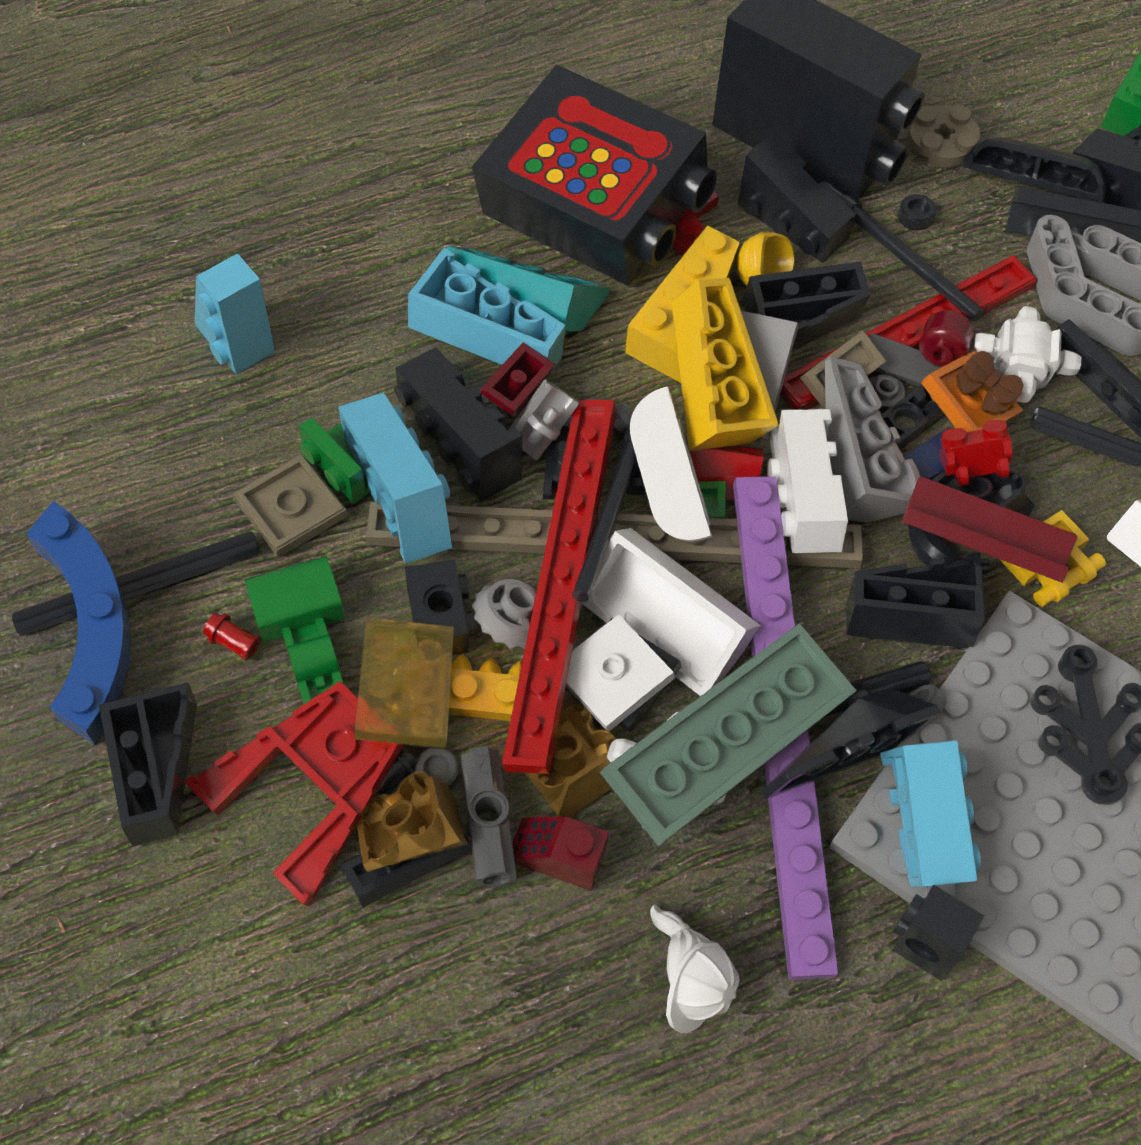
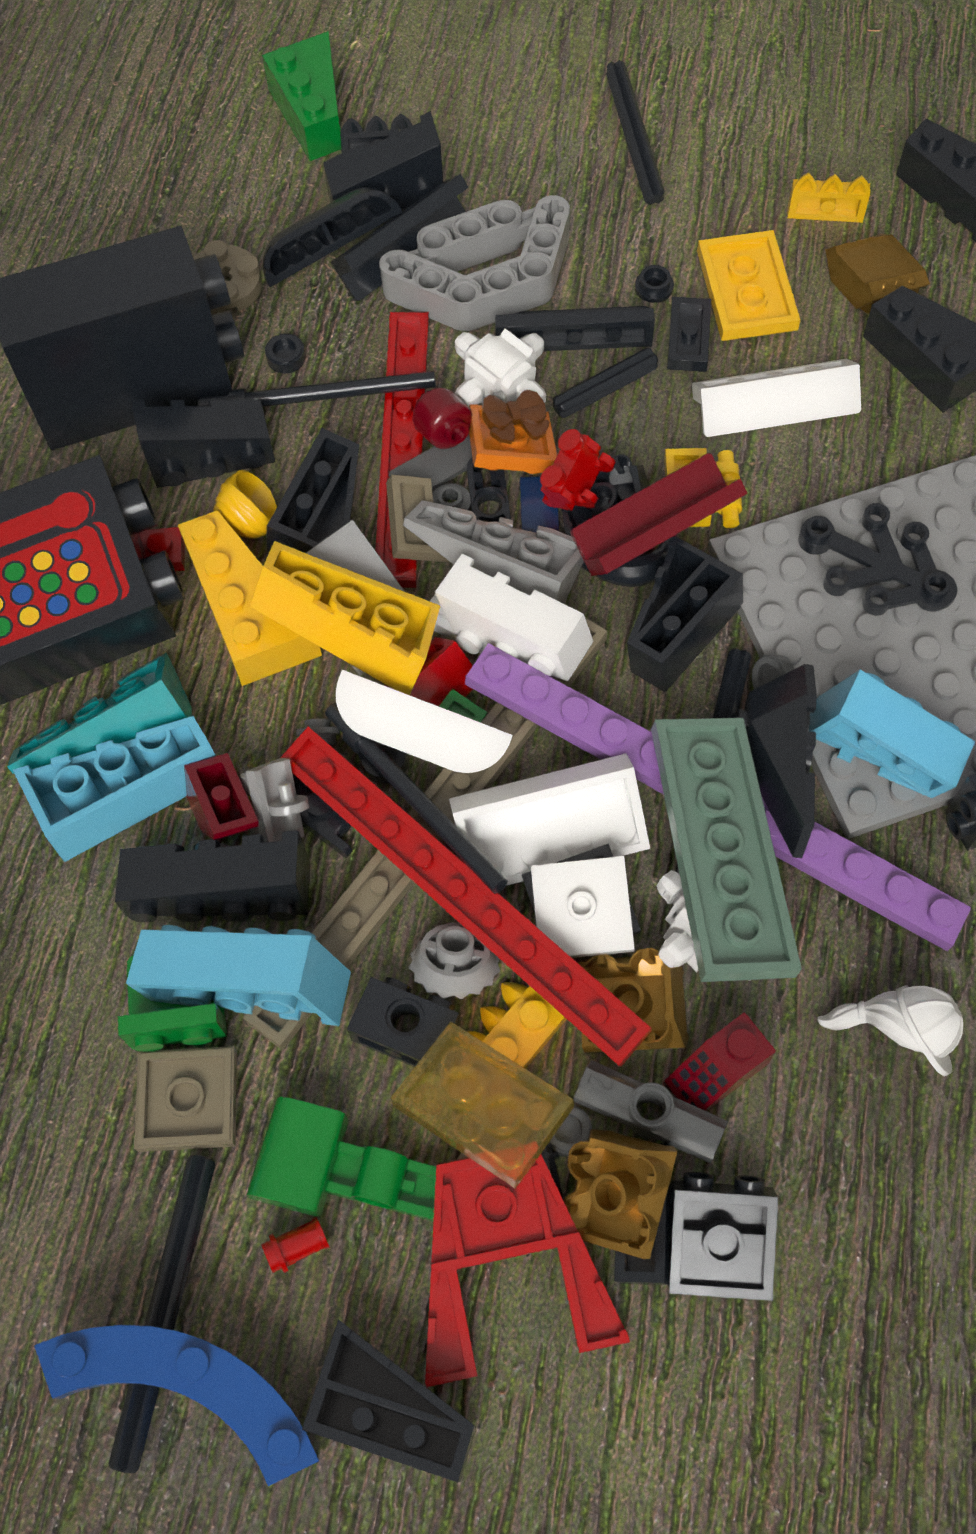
camera: 50 degrees left, 5 degrees up
(423, 924) = (722, 1237): none -> plate

